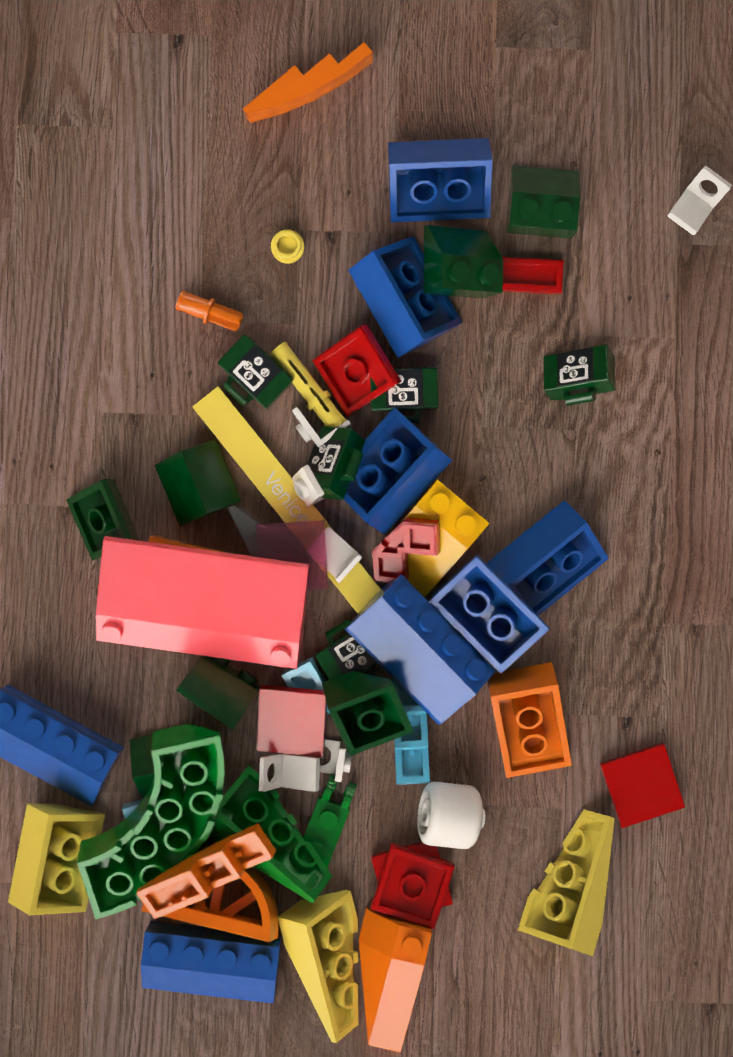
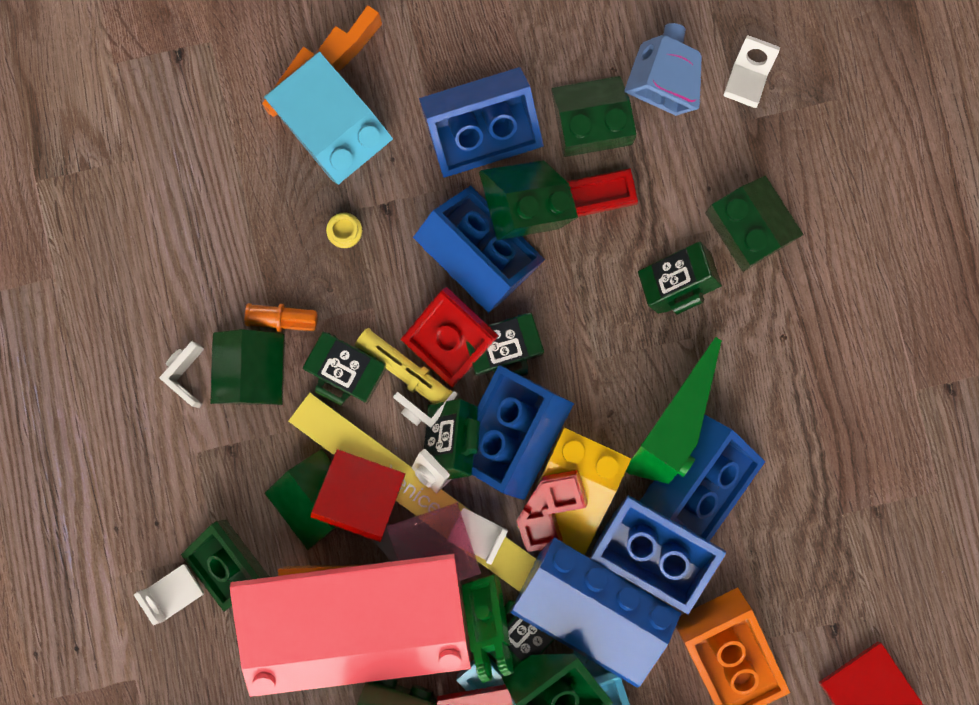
camera: 15 degrees left, 5 degrees down
(47, 532) = (169, 595): none -> white bracket
(105, 329) = (177, 365): none -> white bracket
(167, 348) = (247, 367): none -> dark green slope
(237, 490) = (358, 495): none -> red tile
(300, 138) = (328, 118): none -> medium azure slope
(321, 635) = (487, 625): none -> green hinge
(536, 511) = (677, 431): none -> green wedge
(622, 180) = (667, 72): none -> medium blue torso
(661, 340) = (753, 222): none -> dark green slope

